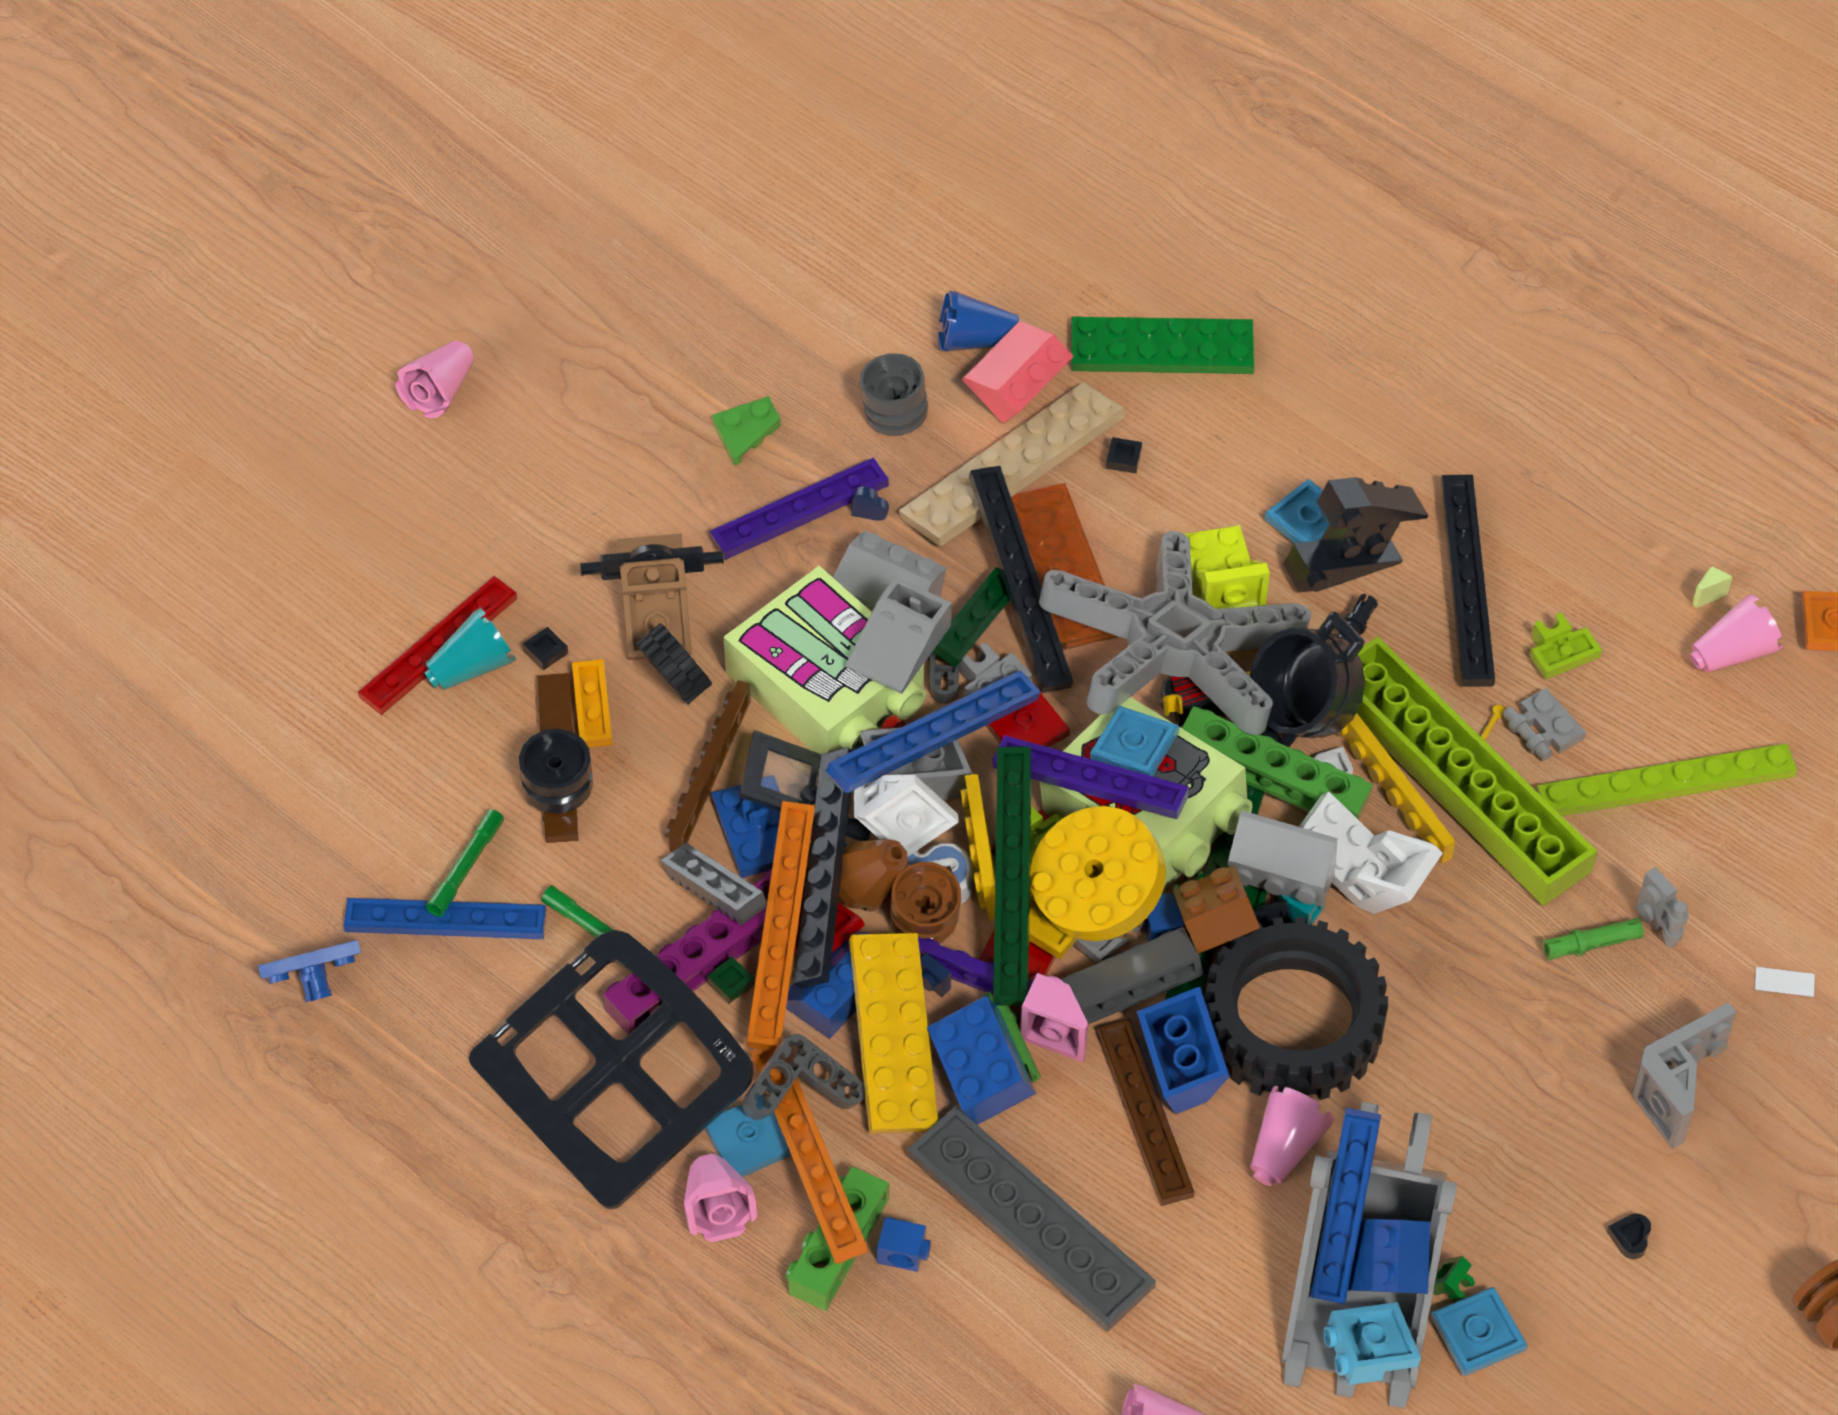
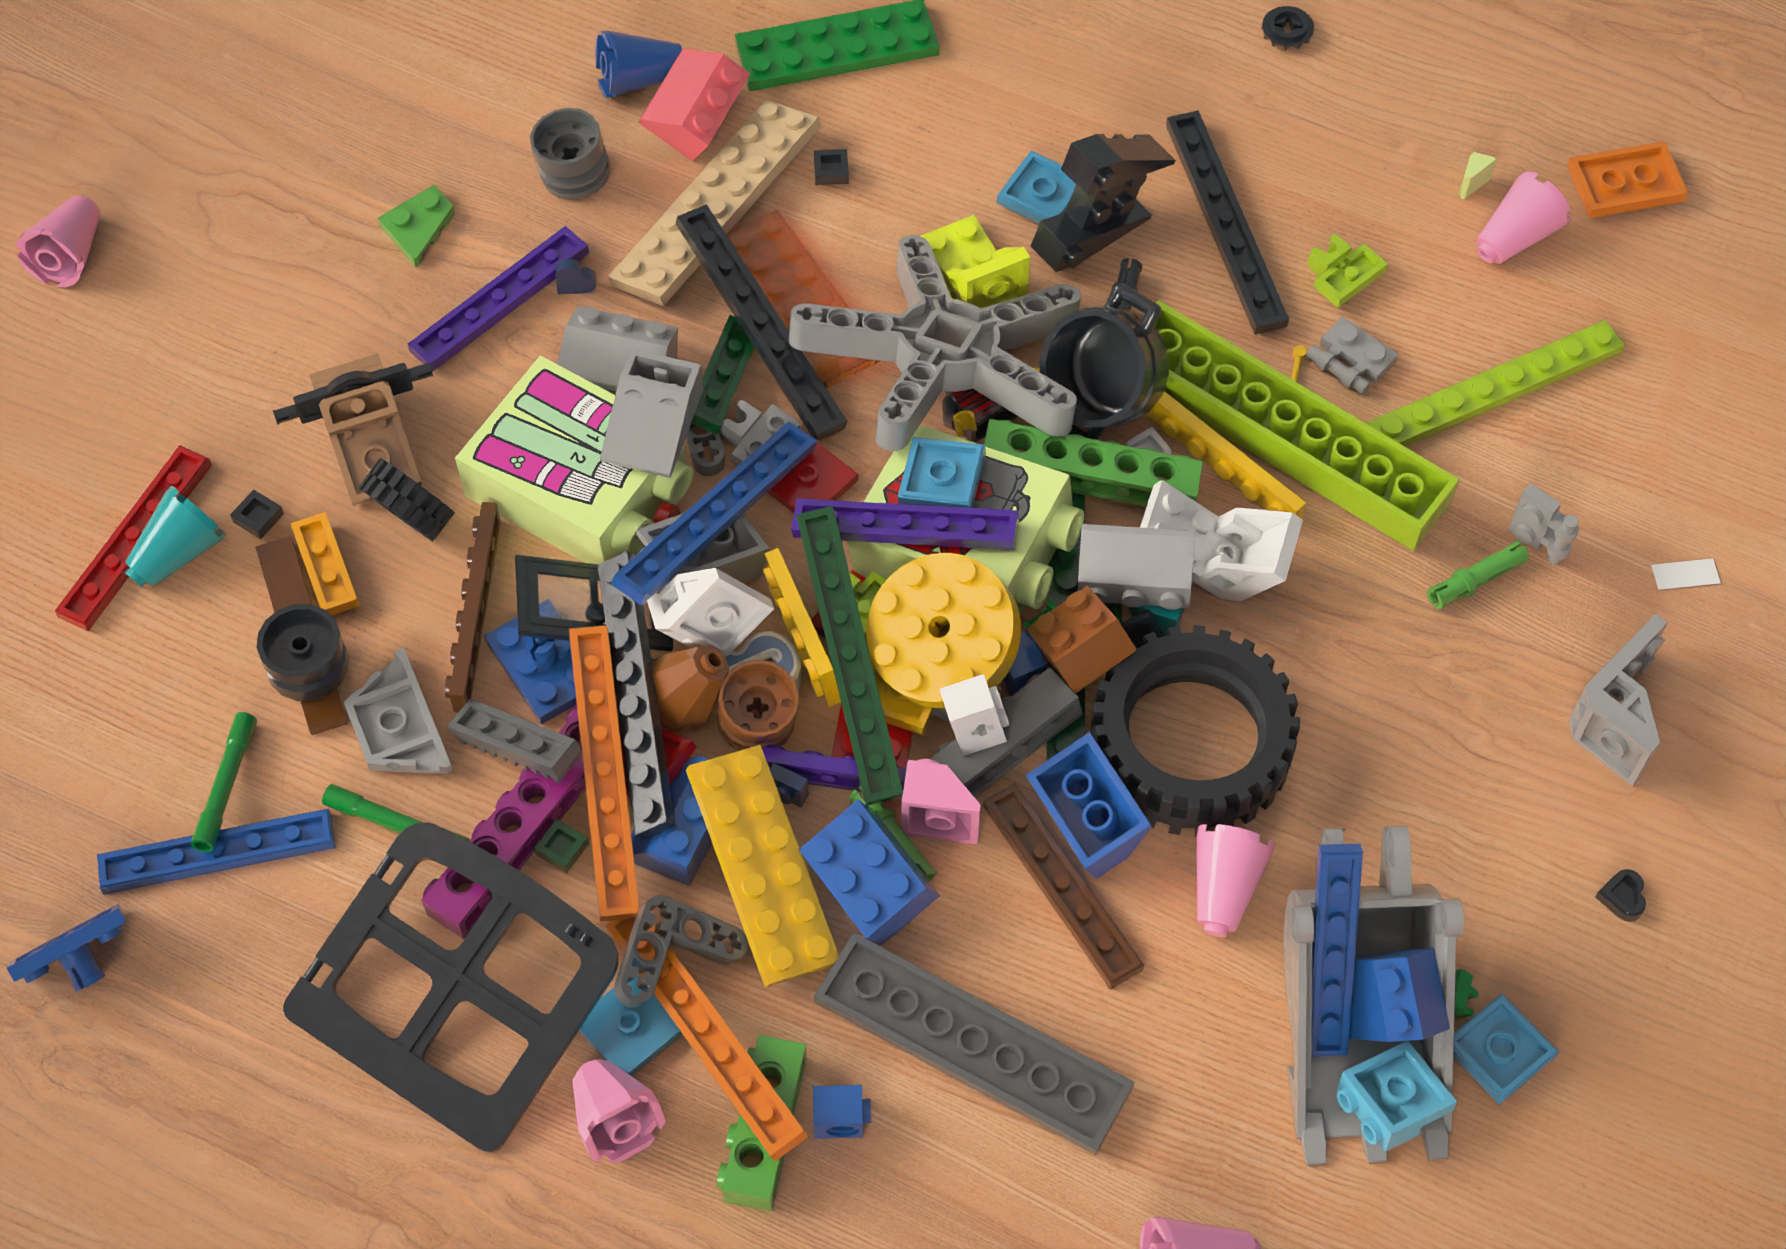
camera: 15 degrees left, 5 degrees up
(619, 848) = (396, 722): none -> light grey wing
(1104, 948) = (975, 714): none -> white brick
(1574, 407) = (1299, 23): none -> black gear

